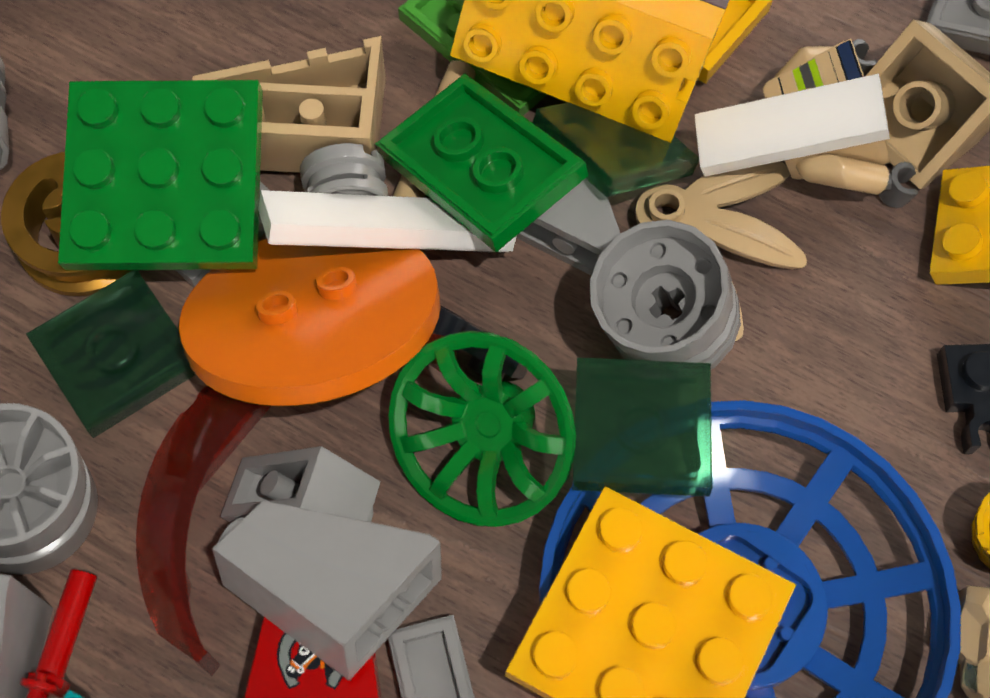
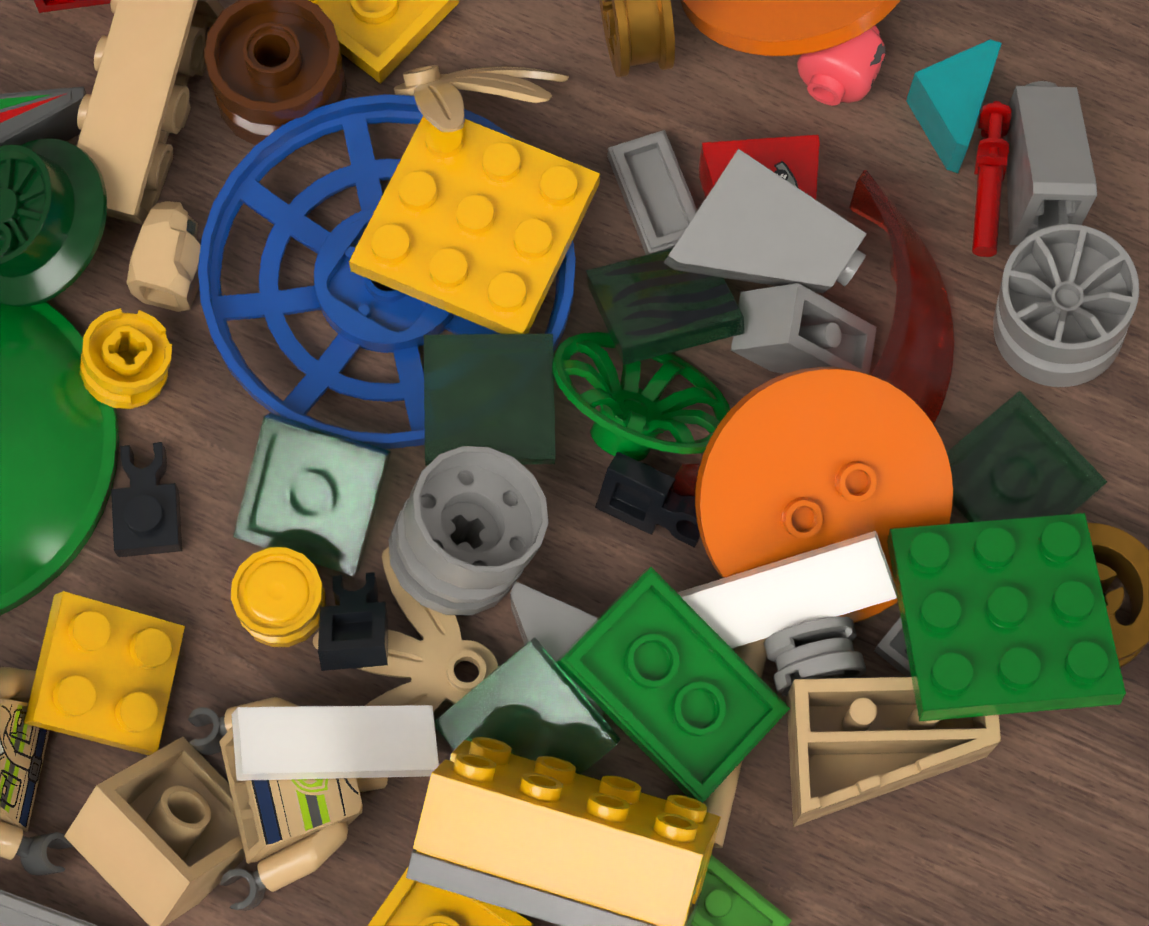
camera: 175 degrees right, 5 degrees up
(475, 534) = (661, 309): none -> clear green tile
(773, 235) = (355, 629): none -> black plate
(819, 372) = (312, 493): none -> clear green tile
(843, 288) = (278, 596): none -> yellow wheel

